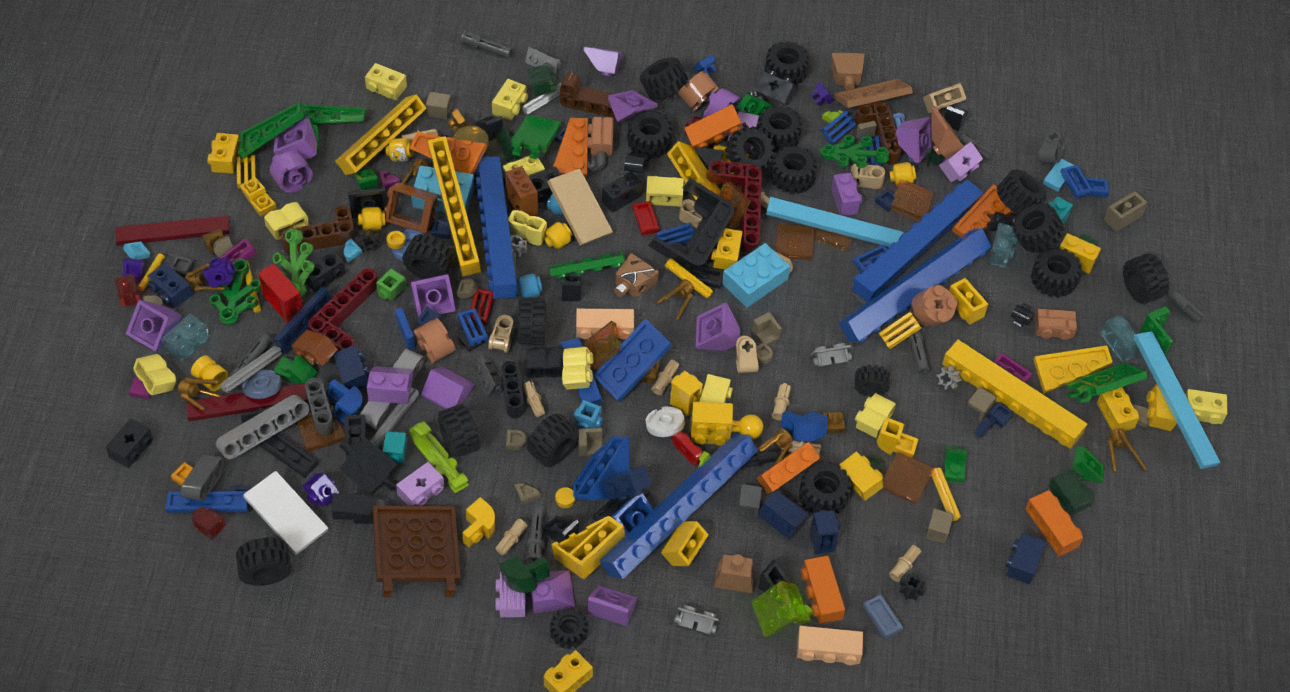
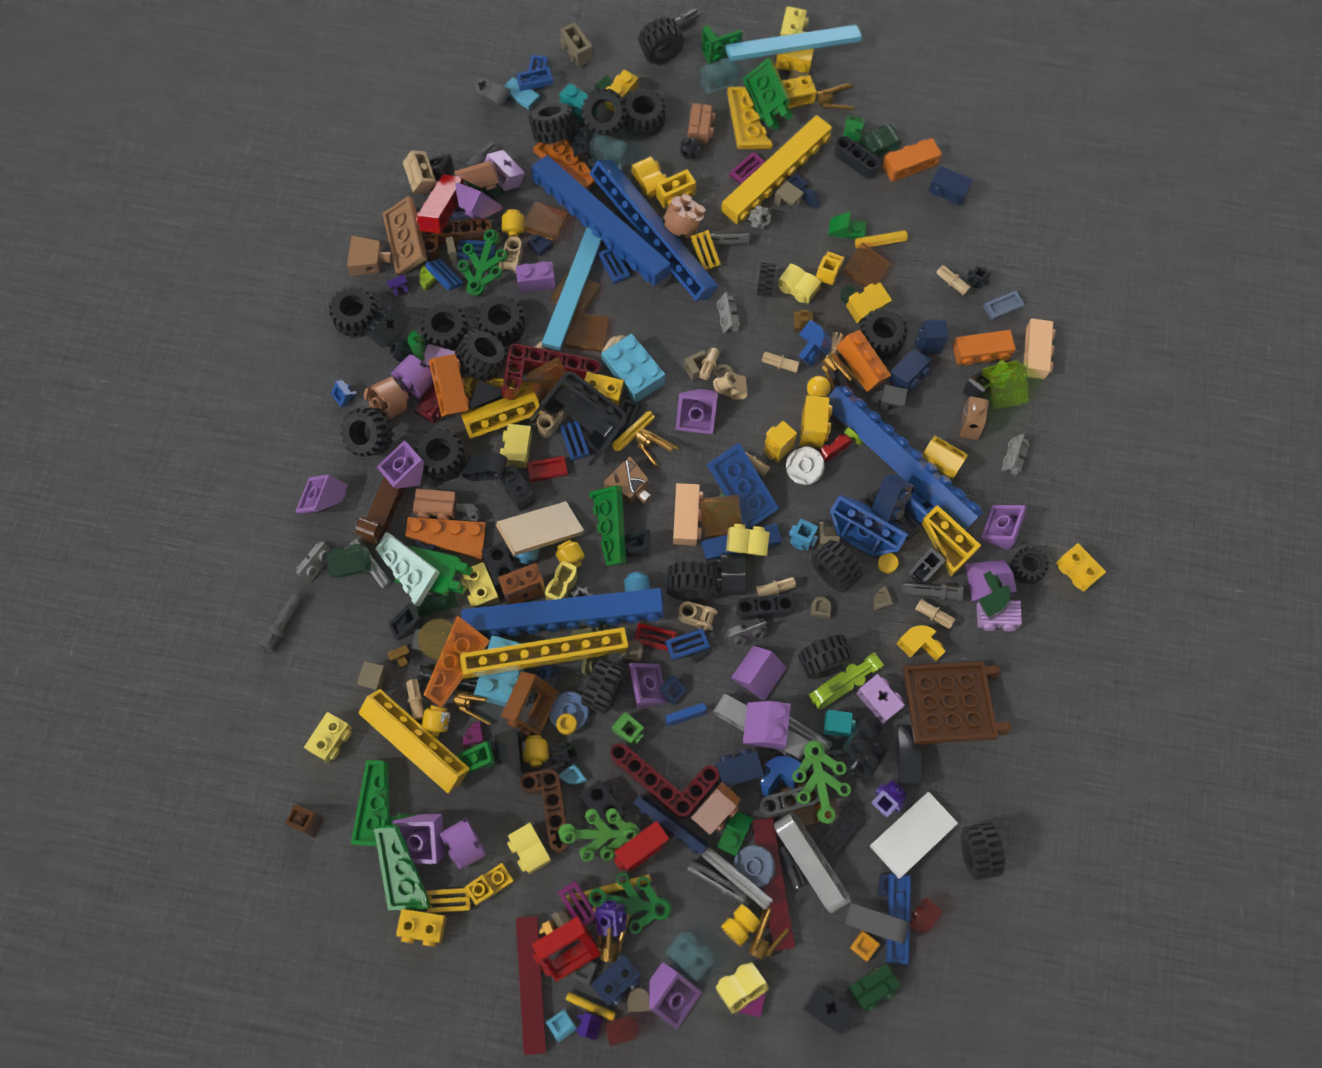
camera: 85 degrees left, 15 degrees up
(146, 478) = (874, 987): none -> dark green brick
(206, 247) = (572, 958): none -> red window
(314, 75) = (304, 820): none -> reddish brown slope
(336, 422) = (819, 778): none -> bright green plant
(434, 340) = (707, 681): nougat brick -> none
(509, 99) = (371, 598): light yellow brick -> none
(537, 117) = (408, 567): none -> light aqua wing
(716, 390) = (775, 413): light yellow brick -> none
(769, 337) = (709, 363): none -> tan axle
(899, 107) = (439, 205): none -> brick
(939, 526) = (916, 247): dark tan panel -> none
(983, 279) = (647, 174): none -> yellow brick
(1041, 475) = (847, 151): none -> black beam

